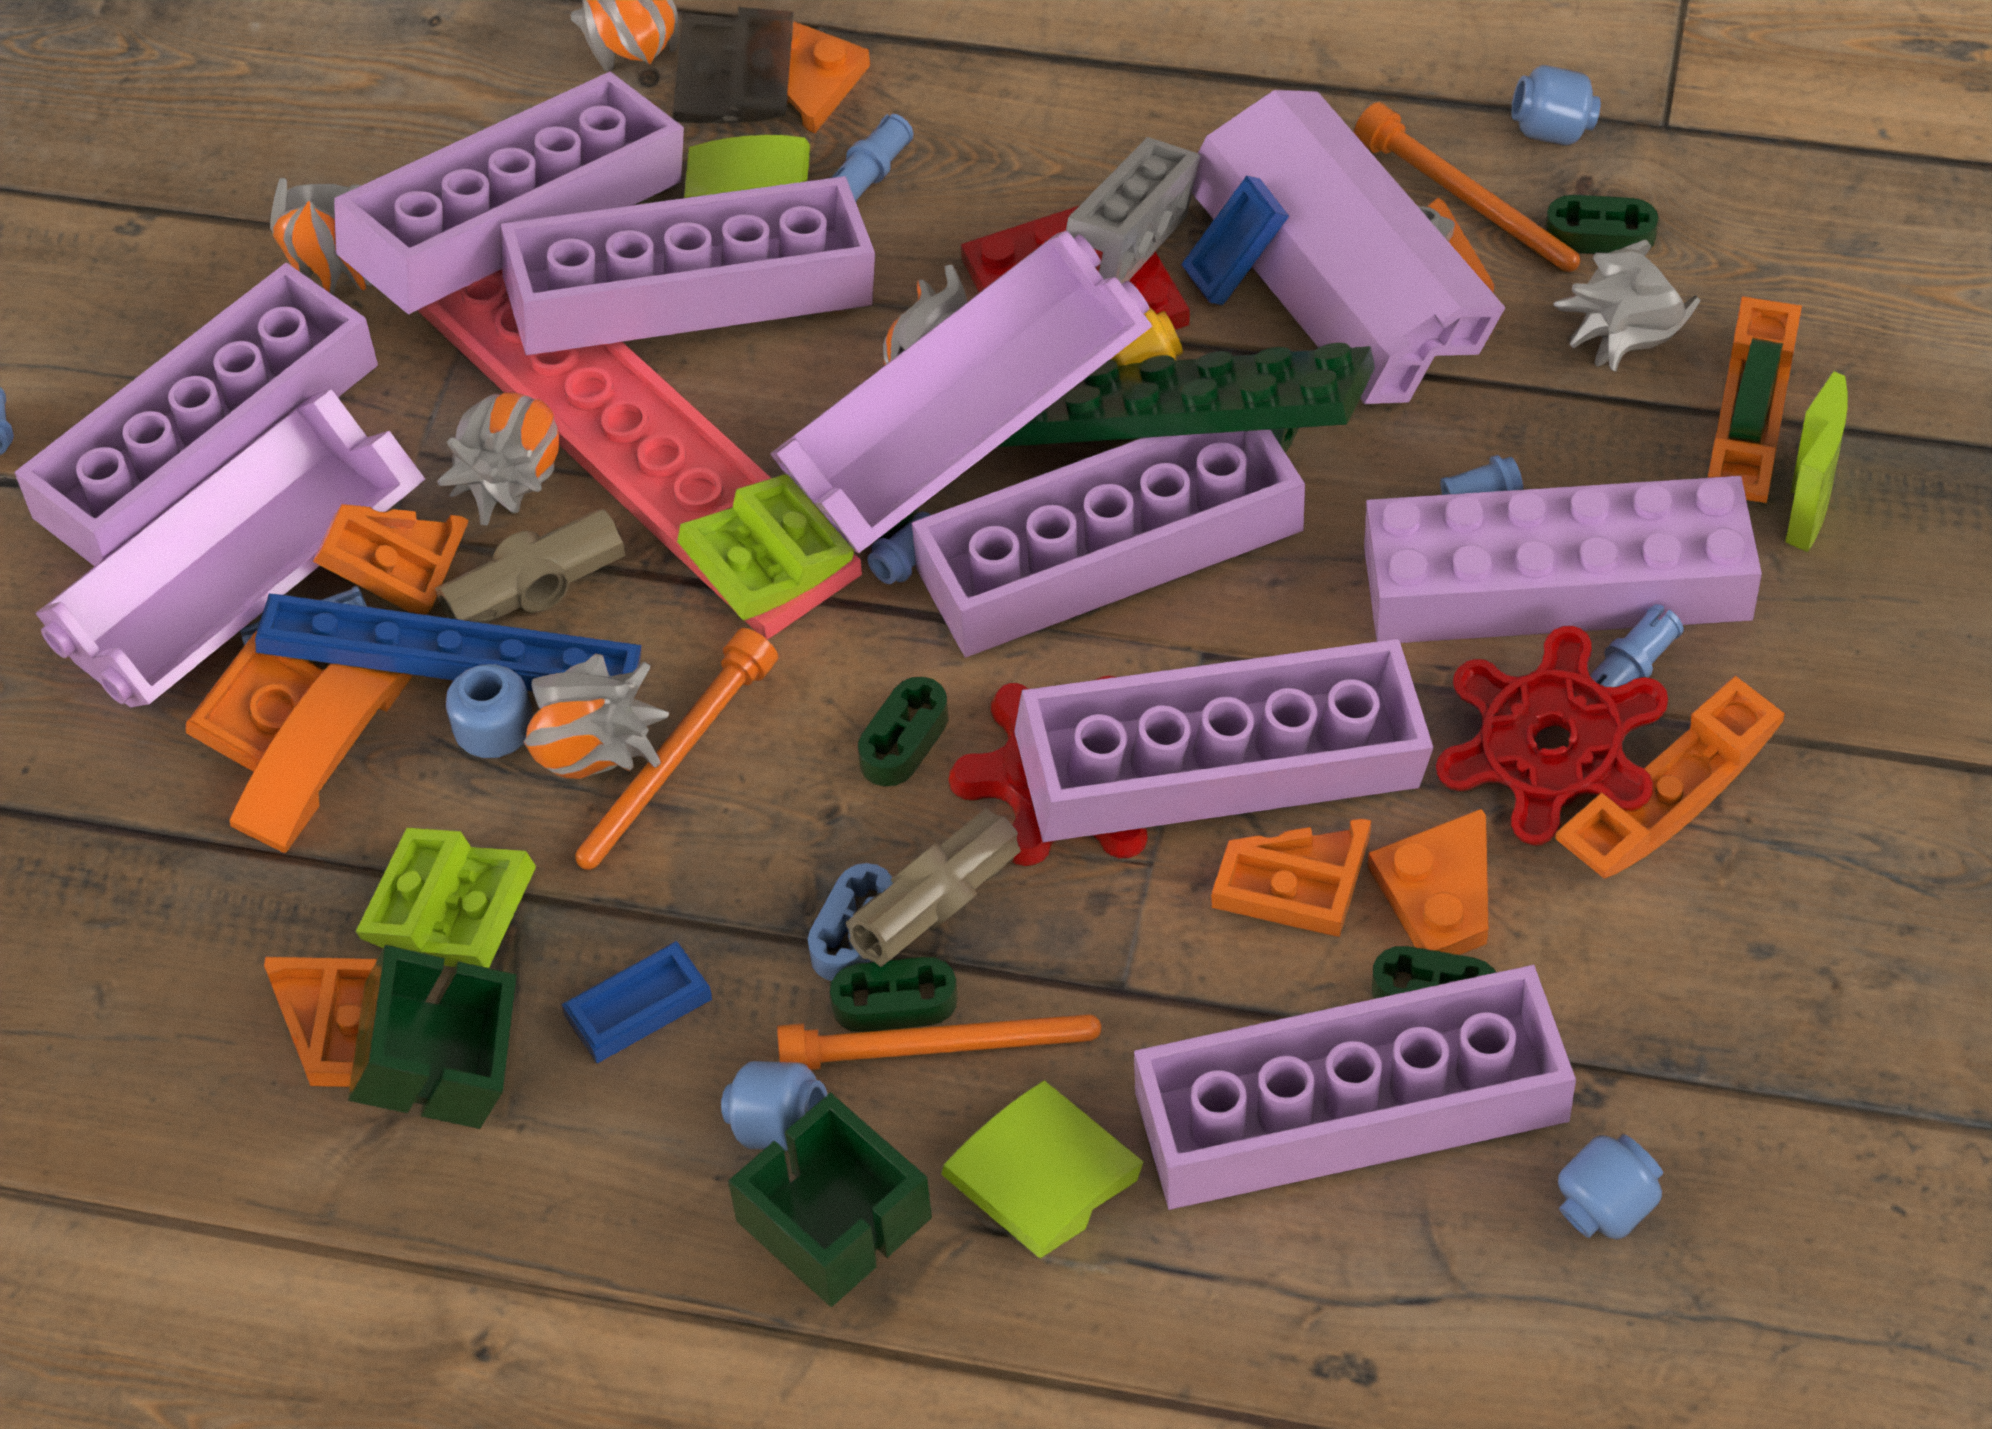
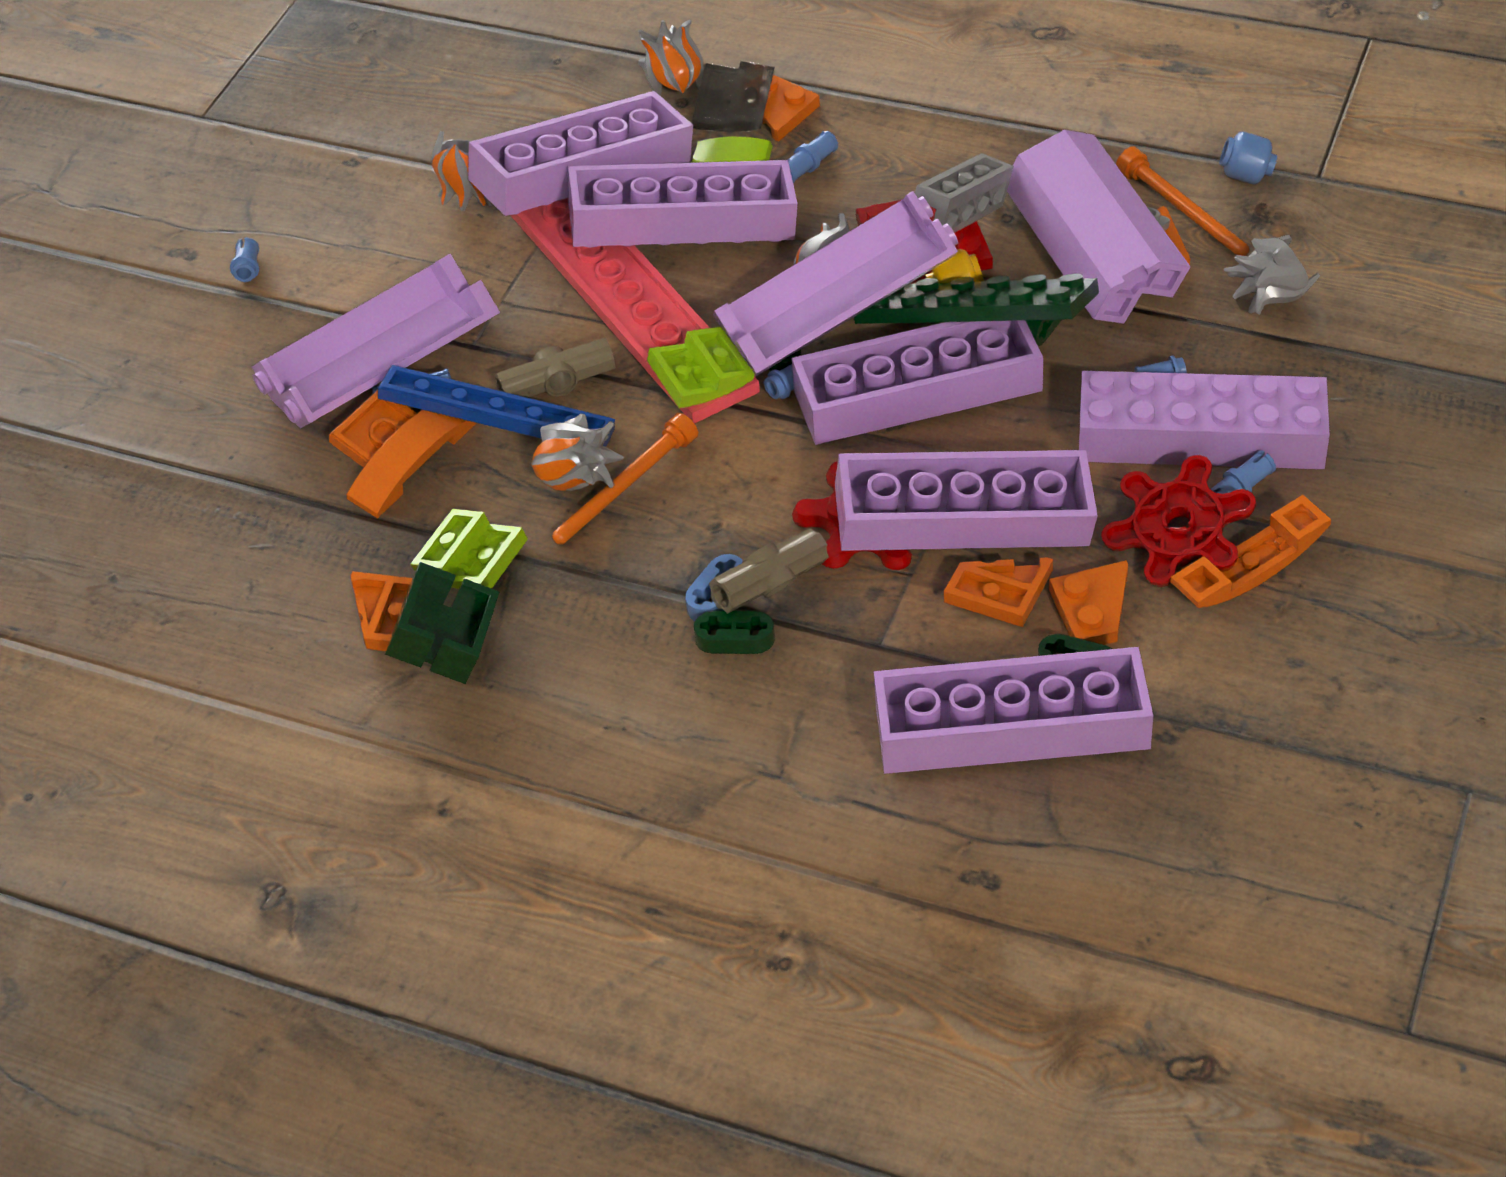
camera: 10 degrees right, 5 degrees down
(195, 411) = (368, 261): lavender brick -> none
(391, 553) = (471, 351): orange wing -> none
(489, 710) = (512, 444): medium blue head -> none
(502, 451) = (549, 300): light grey hair -> none
(636, 1001) = (574, 621): blue tile -> none
(768, 1101) = (647, 686): medium blue head -> none
(809, 1048) = (672, 658): orange piece -> none
(840, 1209) = (683, 744): dark green piece -> none
(913, 736) = (763, 480): dark green beam -> none
(1042, 1168) = (807, 740): lime slope -> none
(1235, 240) = (1027, 217): blue tile -> none
(1601, 222) = (1266, 225): dark green beam -> none
(1610, 1187) = (1168, 787): medium blue head -> none
(1741, 458) = (1348, 334): orange slope -> none
(1756, 390) = (1347, 330): dark green beam -> none
(1817, 461) = (1378, 376): lime slope -> none

